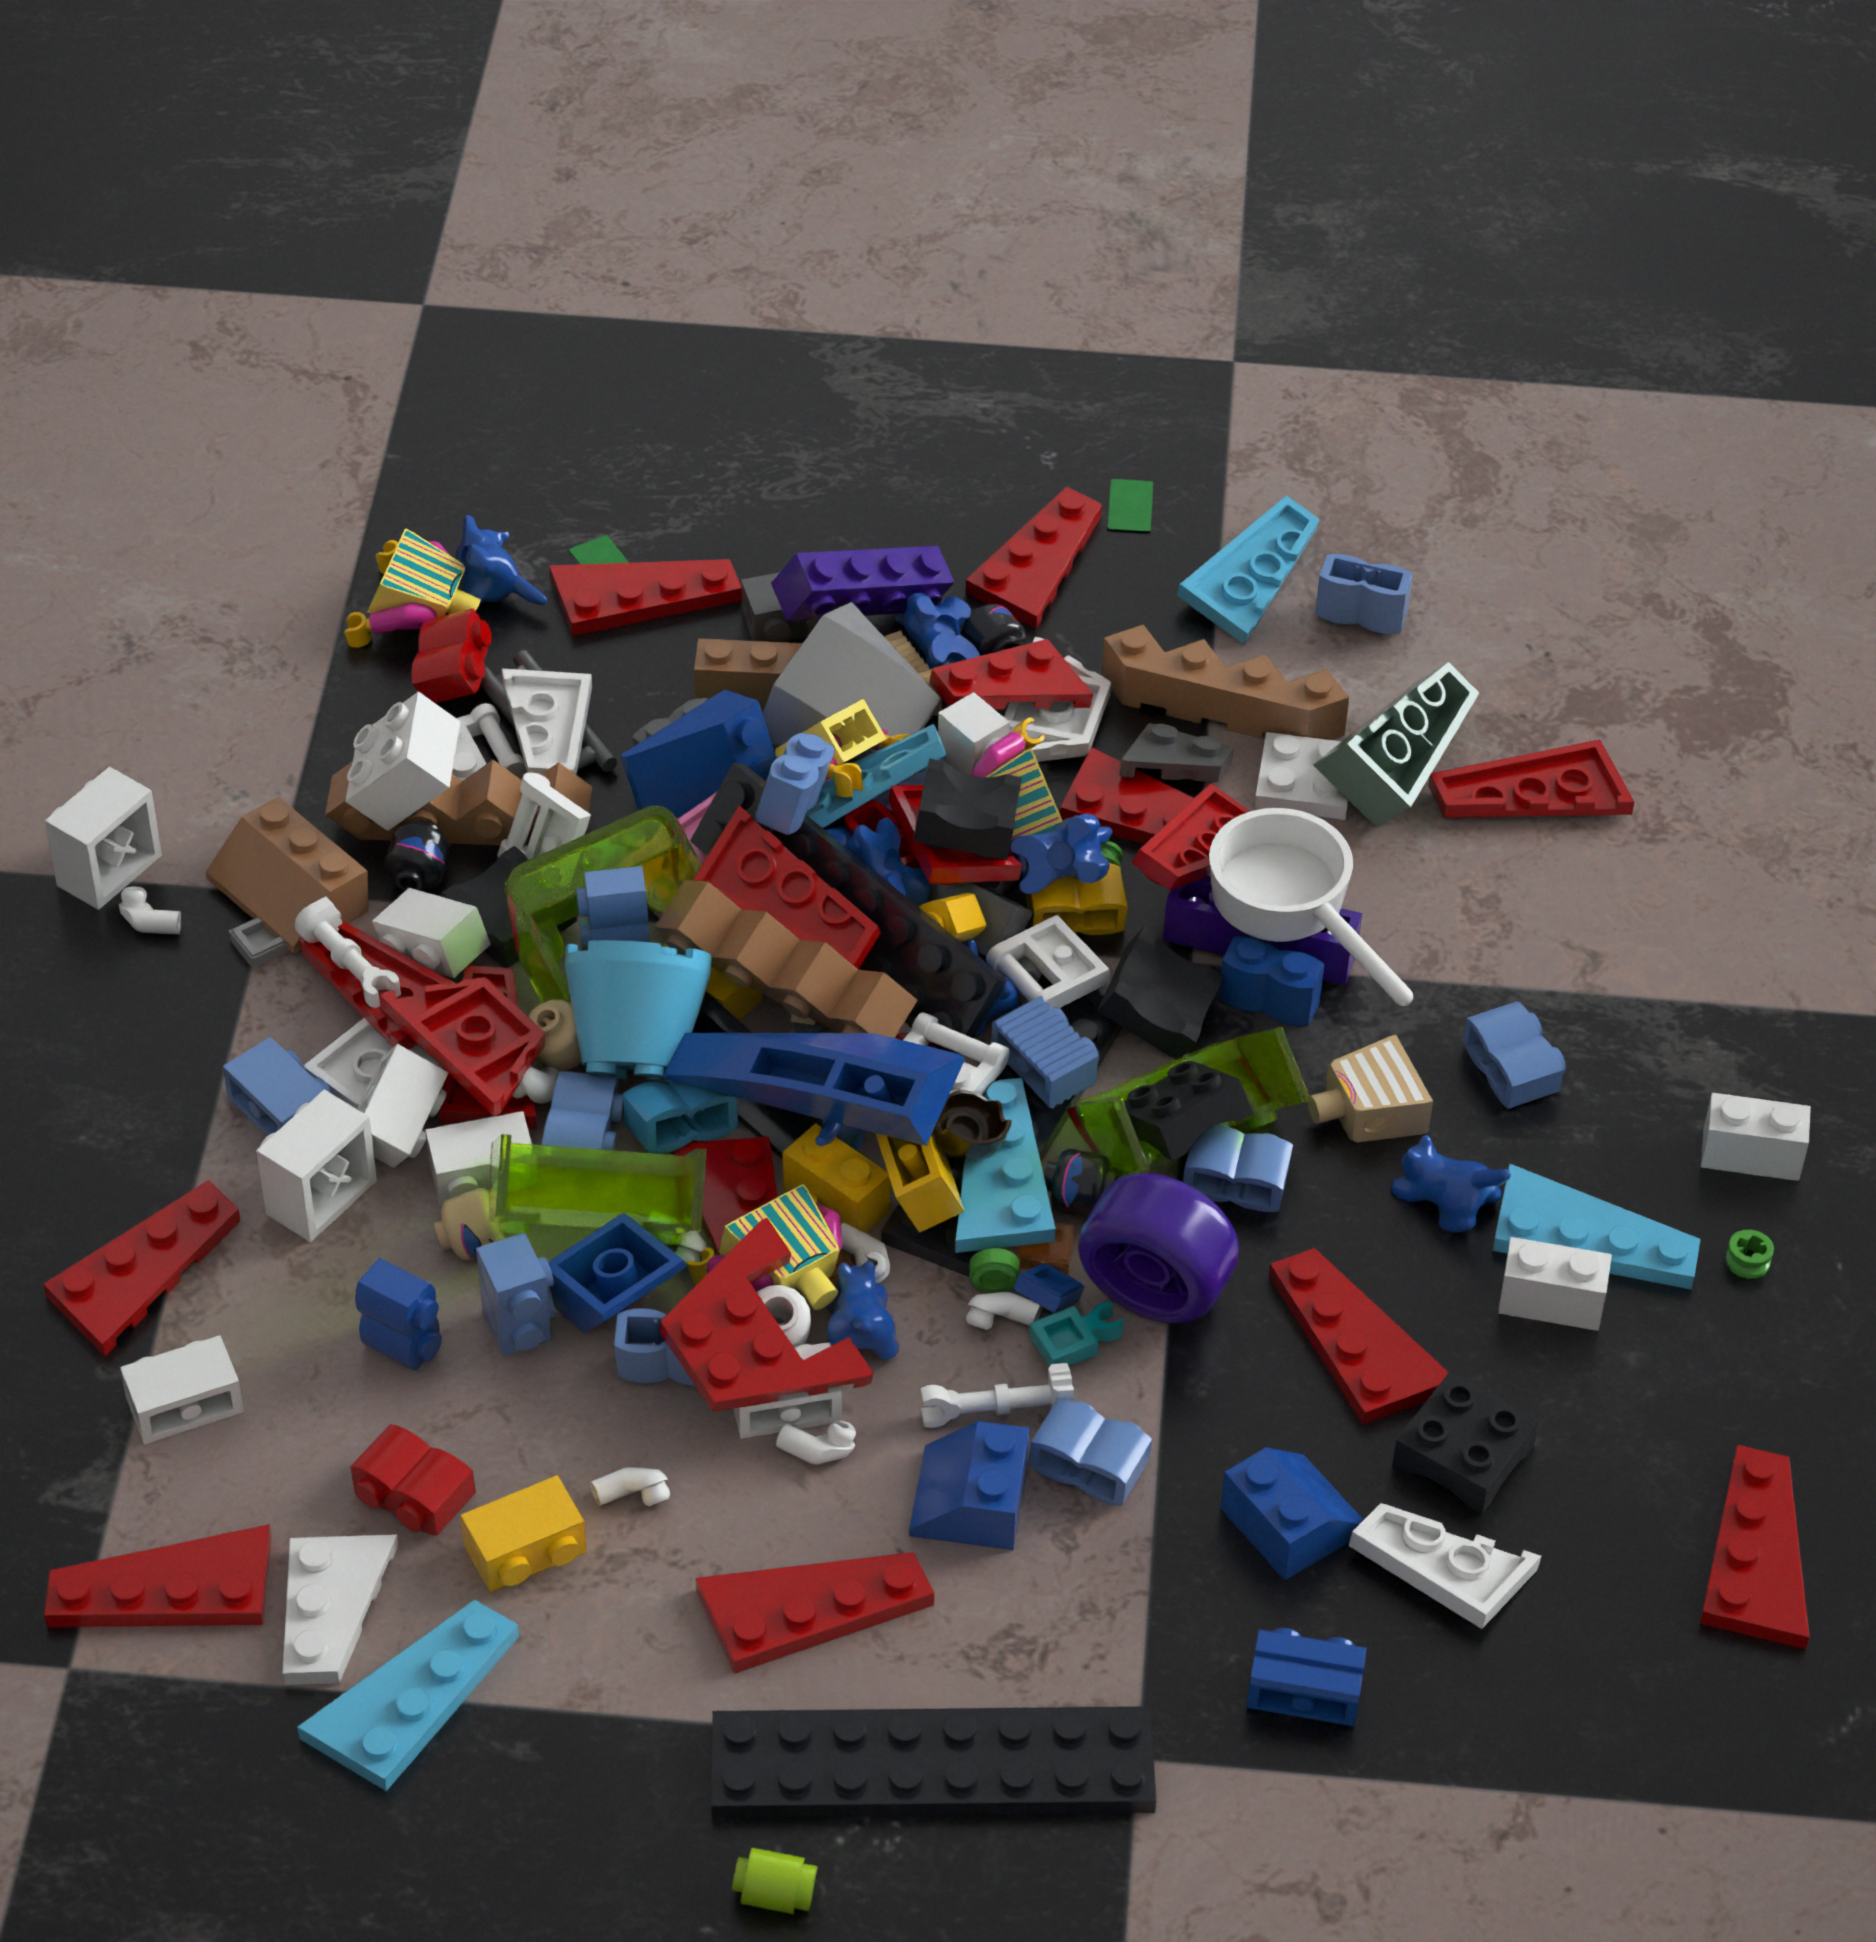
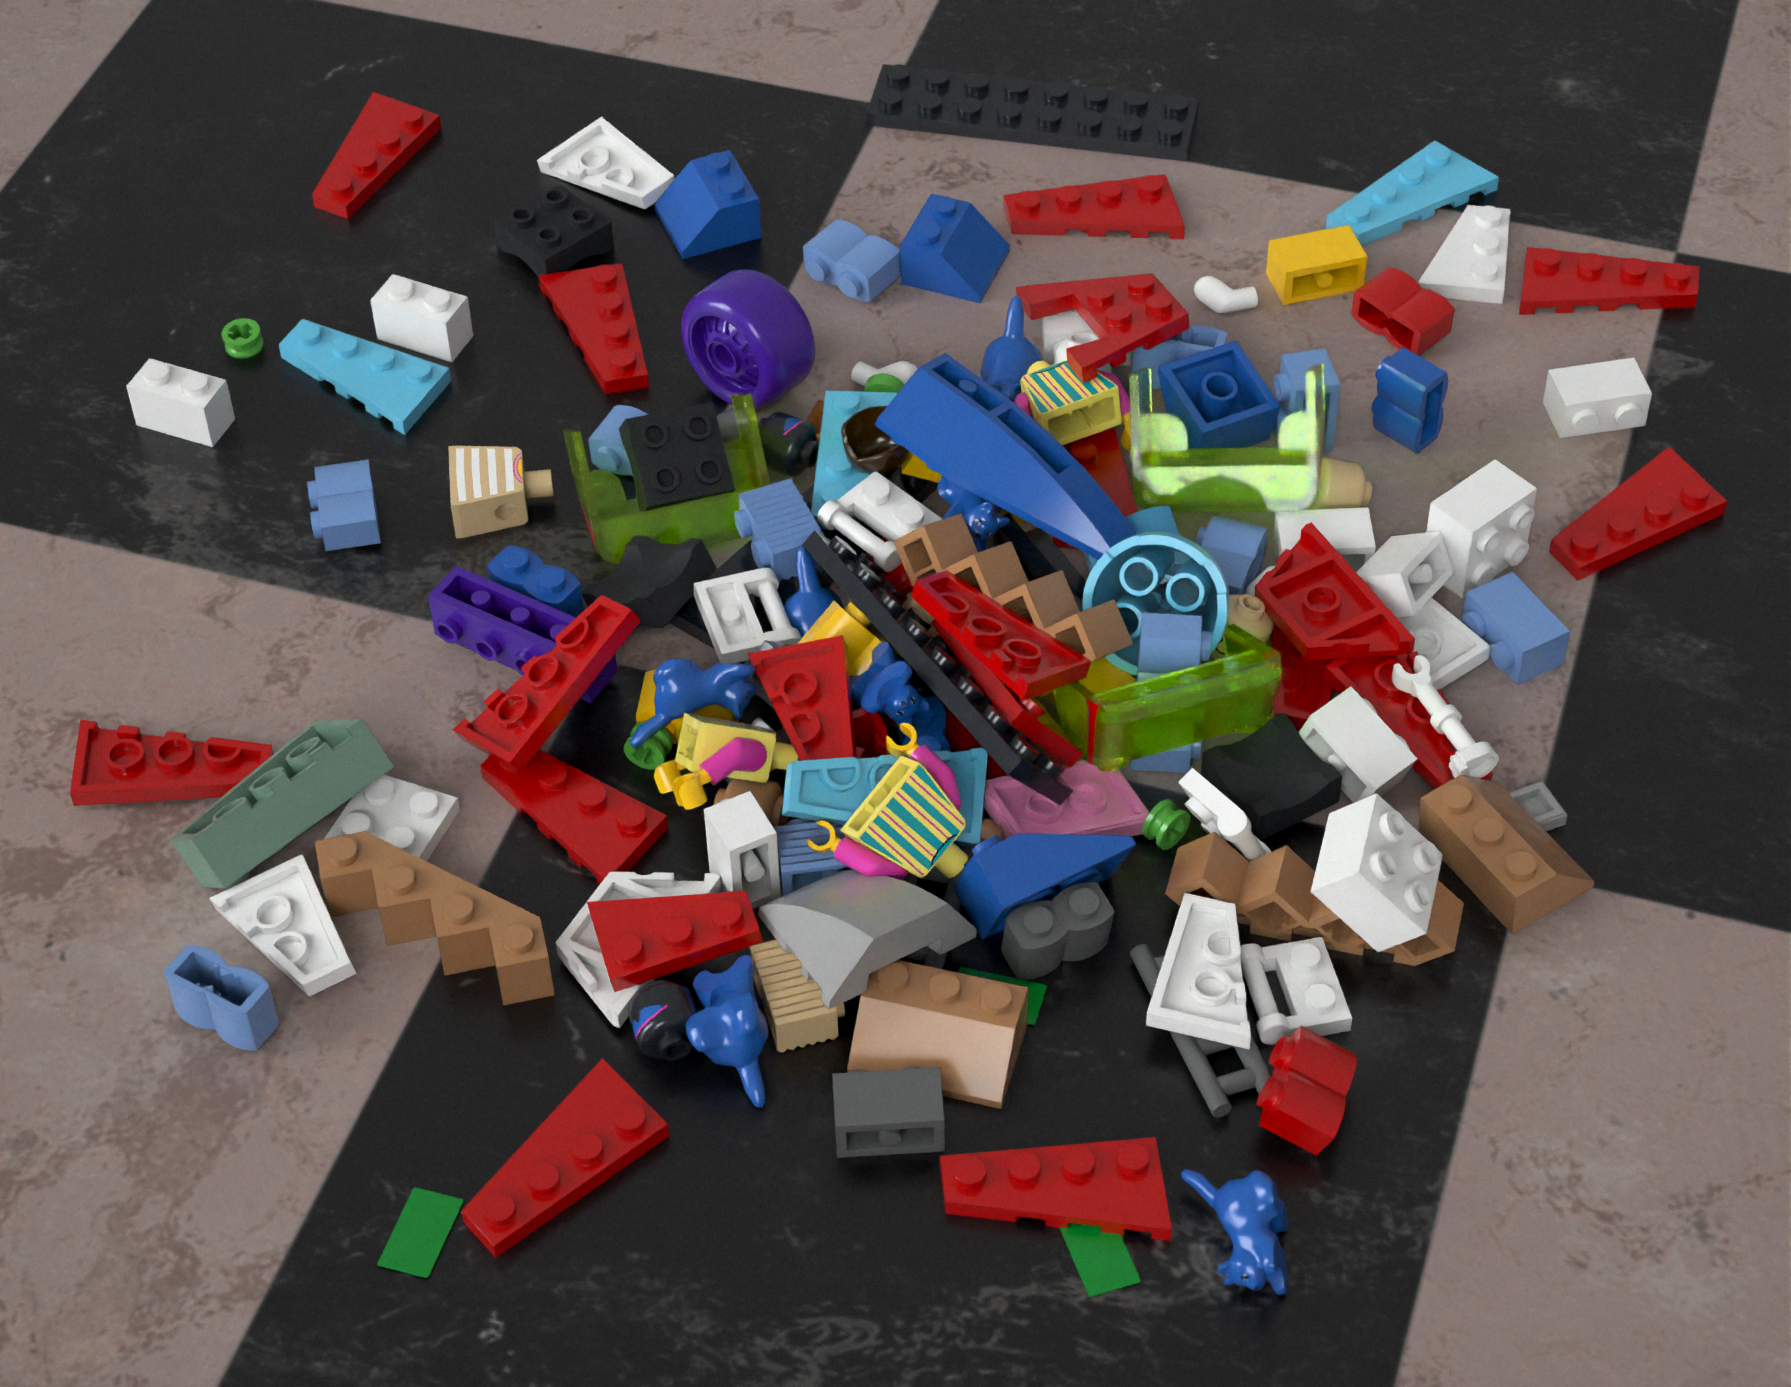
camera: 165 degrees left, 0 degrees up
(103, 837) = (1709, 891): white brick -> none
(144, 917) = (1657, 844): white arm -> none
(416, 587) = (1342, 1198): torso -> none
(774, 1881) = (1162, 54): lime brick -> none
(794, 783) = (957, 710): medium blue brick -> none
(869, 578) = (803, 1058): dark purple brick -> none
(950, 1404) = (956, 310): white piece -> none
(967, 811) = (789, 680): black brick -> none
(1049, 1287) = (841, 375): blue tile -> none
(1073, 1337) = (842, 344): teal plate -> none
(1177, 755) = (523, 853): dark grey wing -> none
(1249, 571) = (334, 1081): medium azure wing -> none
(1286, 879) = (497, 589): white piece -> none
(1306, 1676) = (747, 109): blue brick -> none
(1367, 685) = (289, 924): none -> white wing
(1450, 1183) = (458, 402): blue animal -> none

